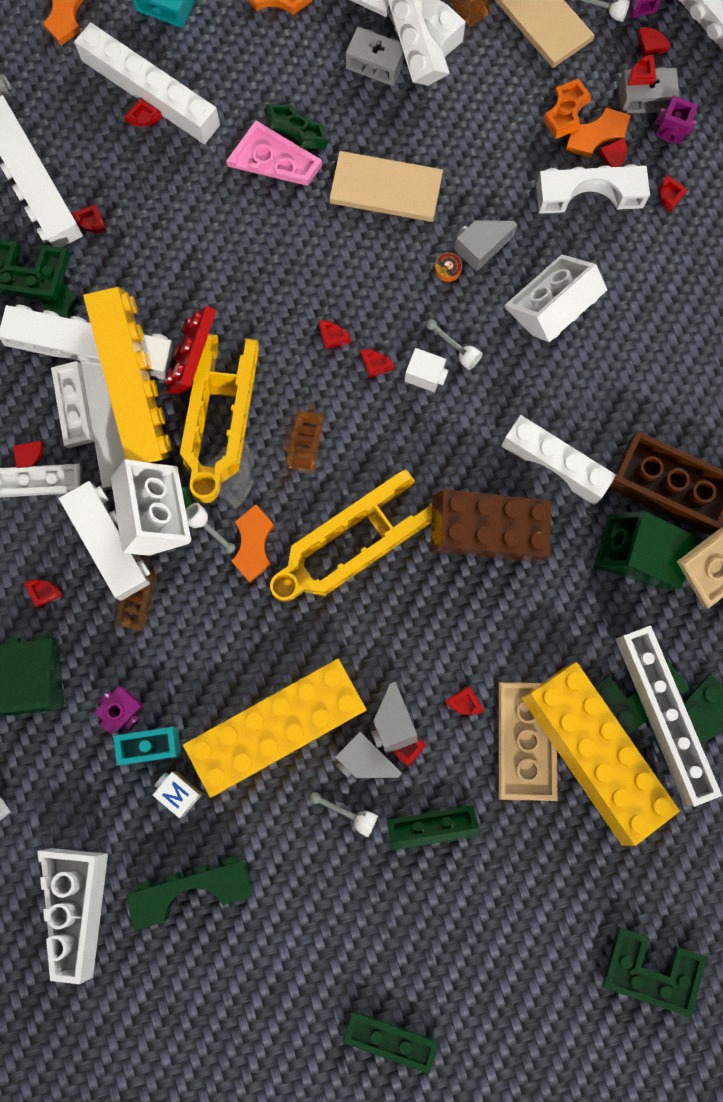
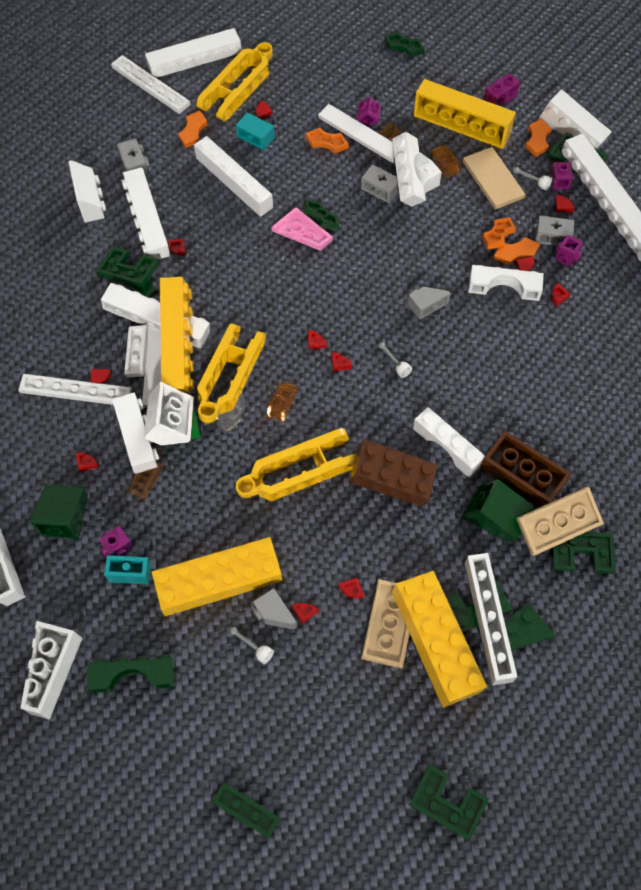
camera: 15 degrees right, 15 degrees down
(143, 114) = (226, 193): red tile -> none
(176, 793) = (139, 606): white brick -> none
(189, 351) = (219, 330): red plate -> none
(198, 517) = (198, 429): white hinge -> none
(254, 530) = (229, 465): orange tile -> none
(386, 186) = (371, 259): tan tile -> none
(393, 723) = (298, 589): light grey slope -> none
(426, 370) = (371, 371): white brick -> none
(433, 828) = (310, 666): dark green plate -> none
(448, 267) = (400, 313): tile -> none
(557, 296) = (469, 343): white slope -> none
(643, 72) = (551, 218): red tile -> none

